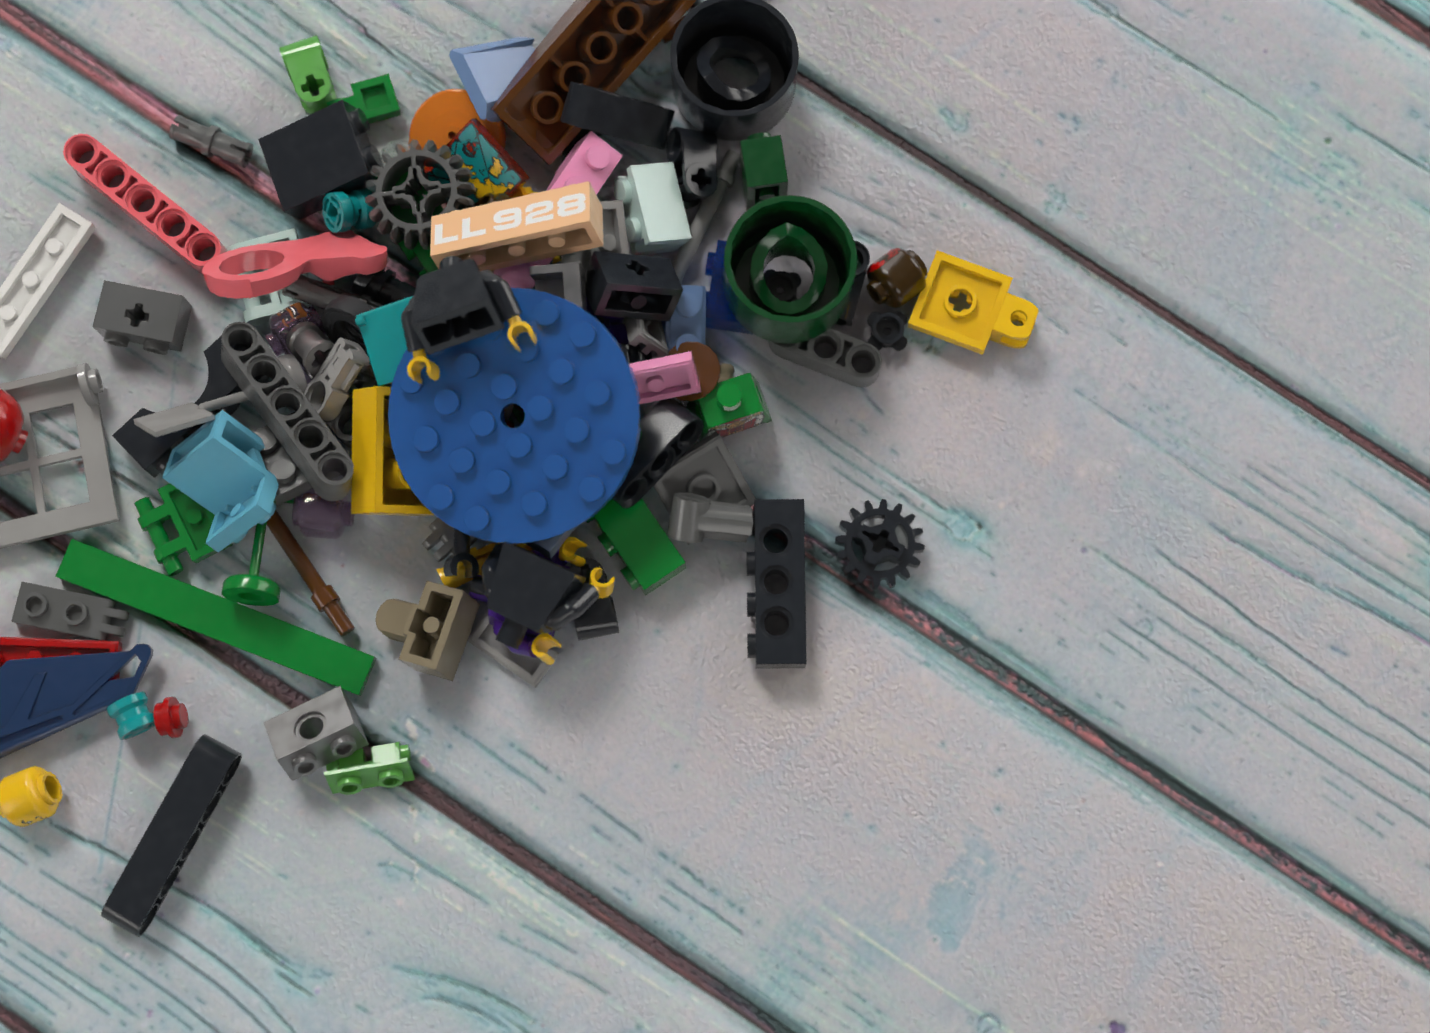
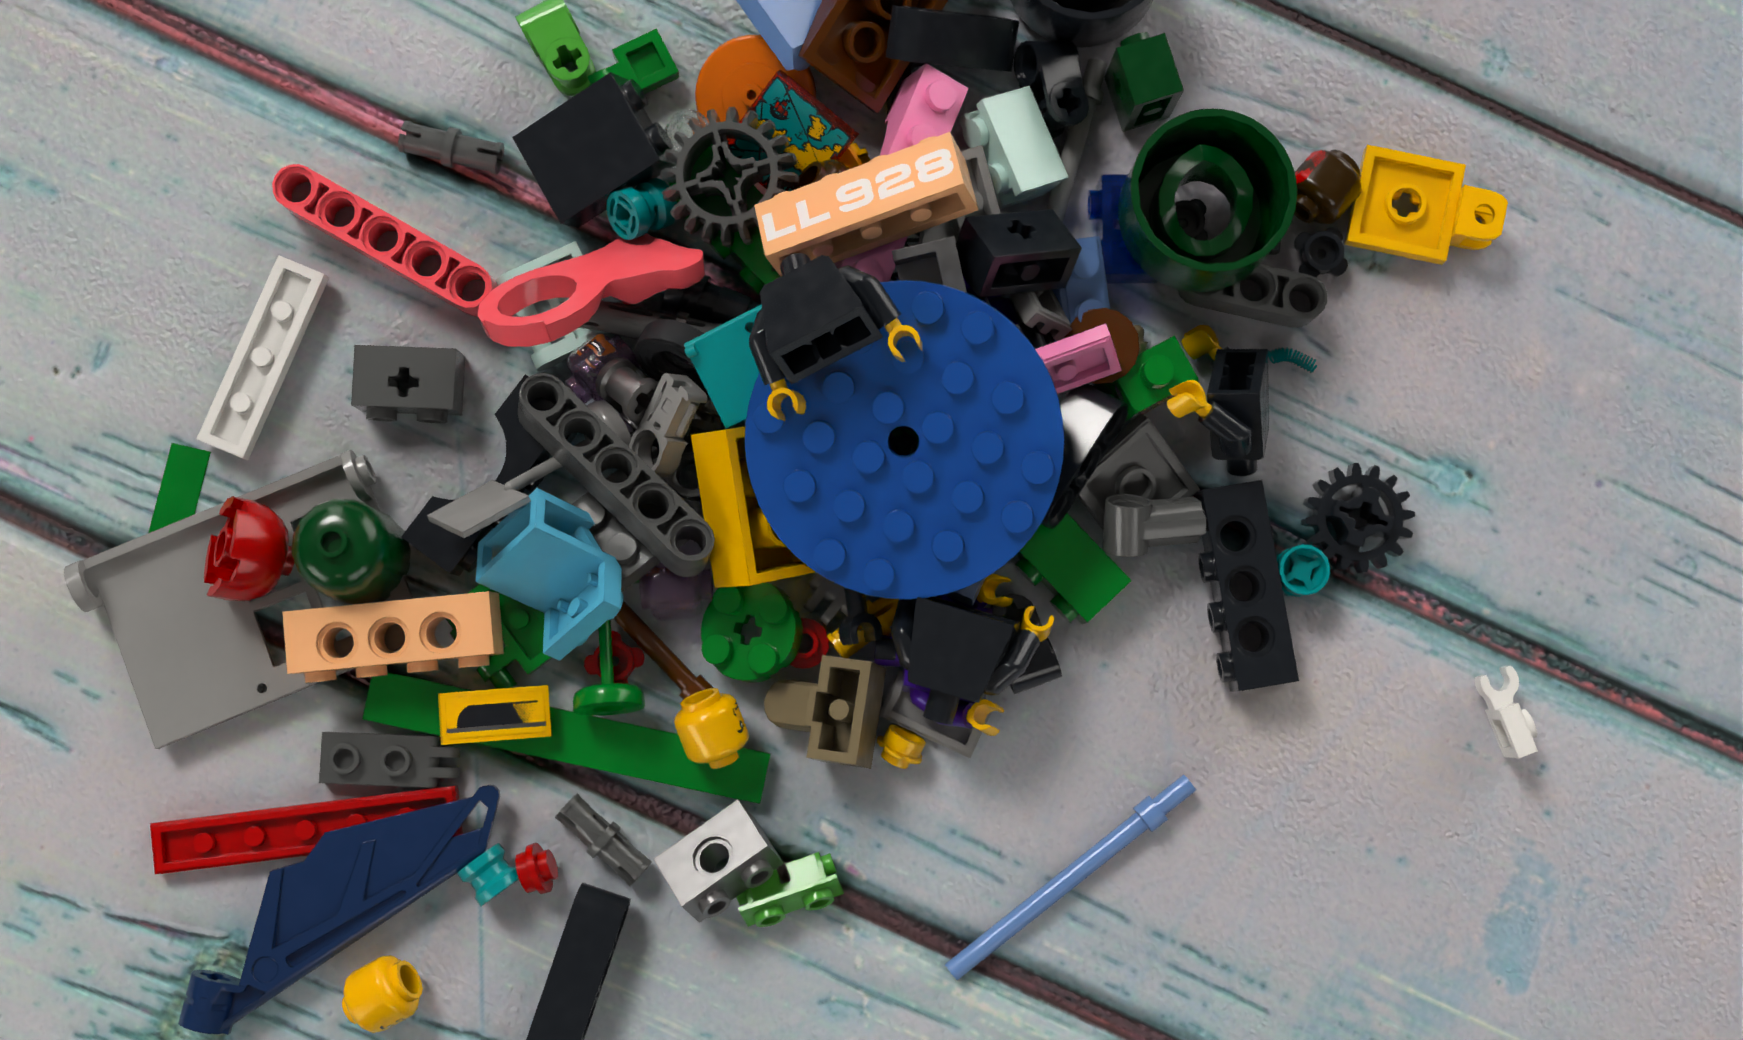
camera: 15 degrees left, 5 degrees up
(28, 497) = (311, 635): none -> light nougat brick
(69, 440) = (350, 551): none -> dark green cylinder
(159, 588) = (494, 714): none -> yellow slope
(229, 703) = (603, 839): none -> dark grey pin
(276, 562) = (628, 659): none -> red plate
(328, 625) = (711, 728): none -> yellow head
(358, 543) = (765, 655): none -> green plate
(411, 561) = (820, 645): none -> red plate
(480, 668) = (901, 746): none -> yellow plate
(671, 755) = (1149, 815): none -> medium blue bar
(790, 433) = (1235, 400): none -> black torso
(827, 572) = (1308, 567): none -> teal wheel
(850, 408) = (1282, 355): none -> teal leg
(977, 731) = (1510, 724): none -> white plate

